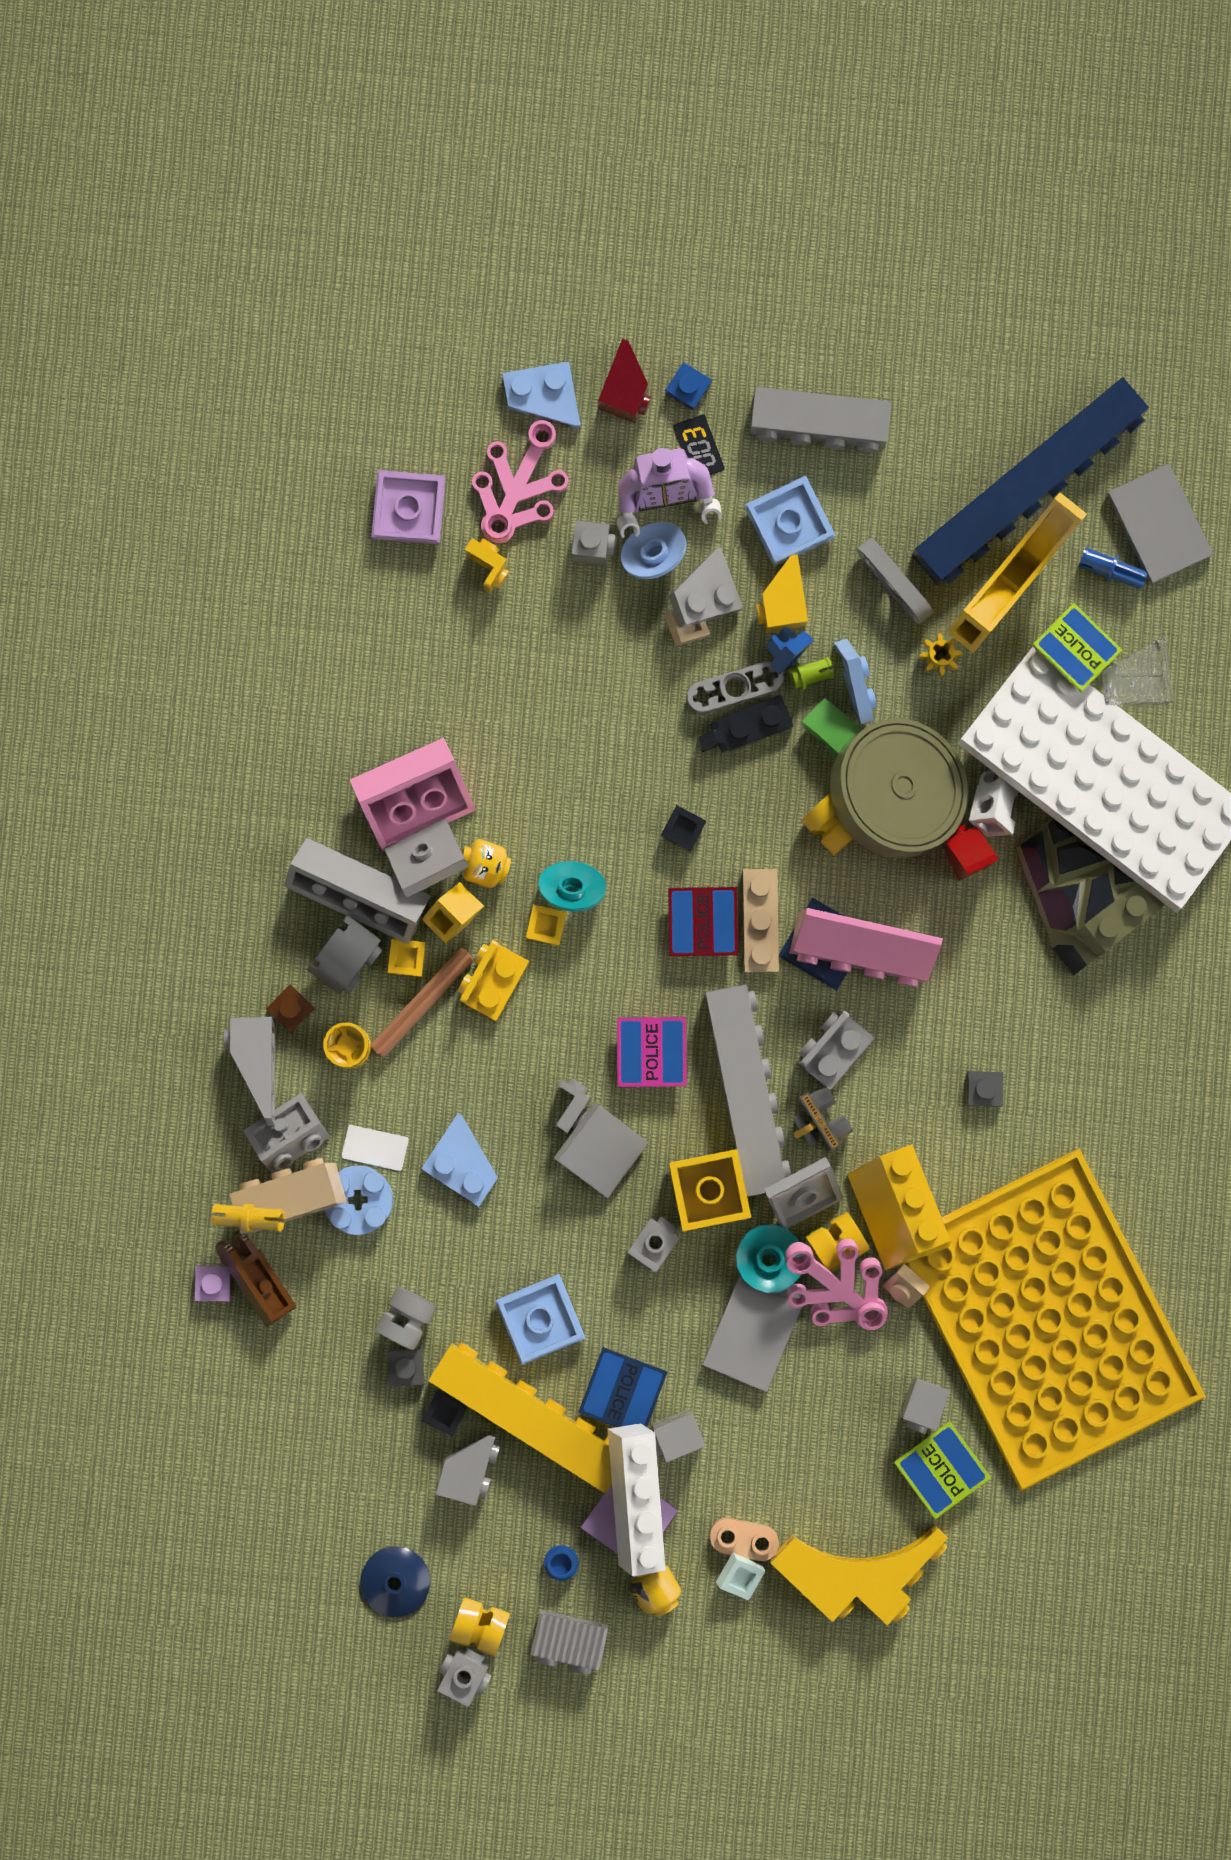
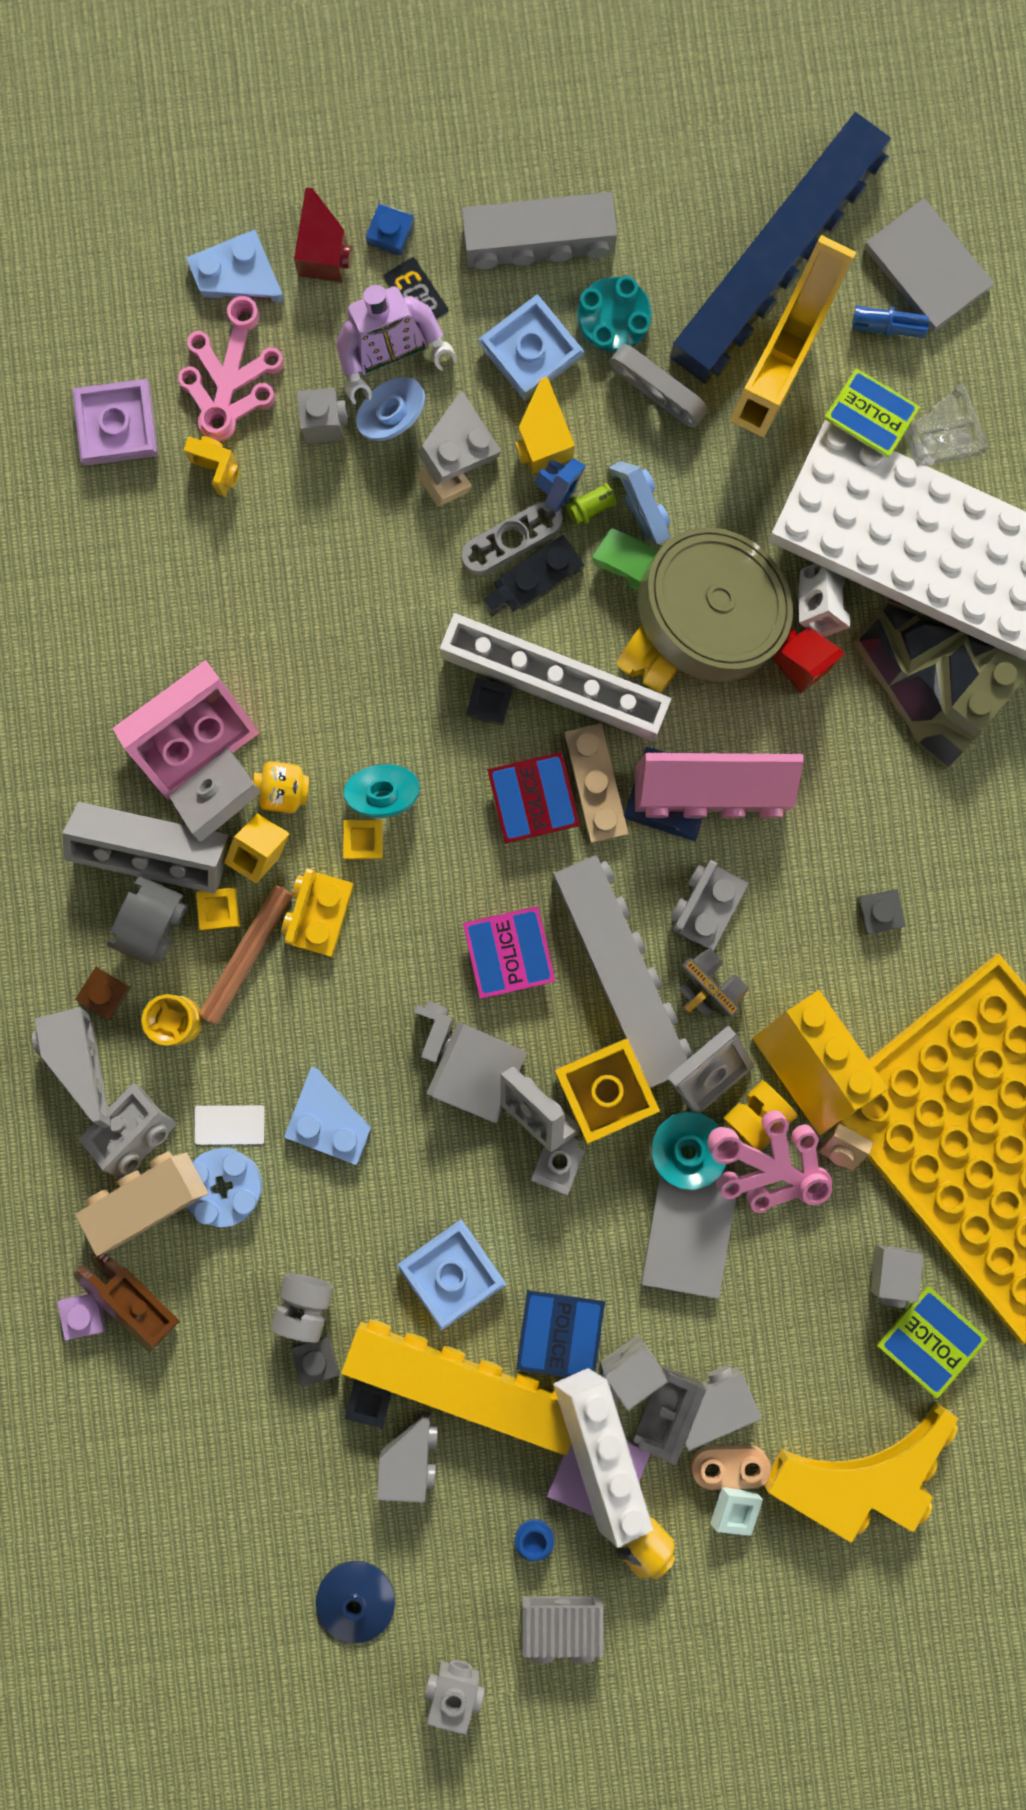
camera: 10 degrees left, 0 degrees up
(248, 1217) = (98, 1237): yellow pin -> none
(479, 1626) = (444, 1631): yellow wheel -> none
(644, 1193) = (536, 1110): none -> light grey bracket
(700, 1481) = (669, 1416): none -> flat silver hinge
(744, 821) = (554, 677): none -> white brick
(746, 1484) = (724, 1407): none -> light grey slope
(870, 507) = (614, 313): none -> teal dish
(937, 646) = (726, 442): yellow gear -> none

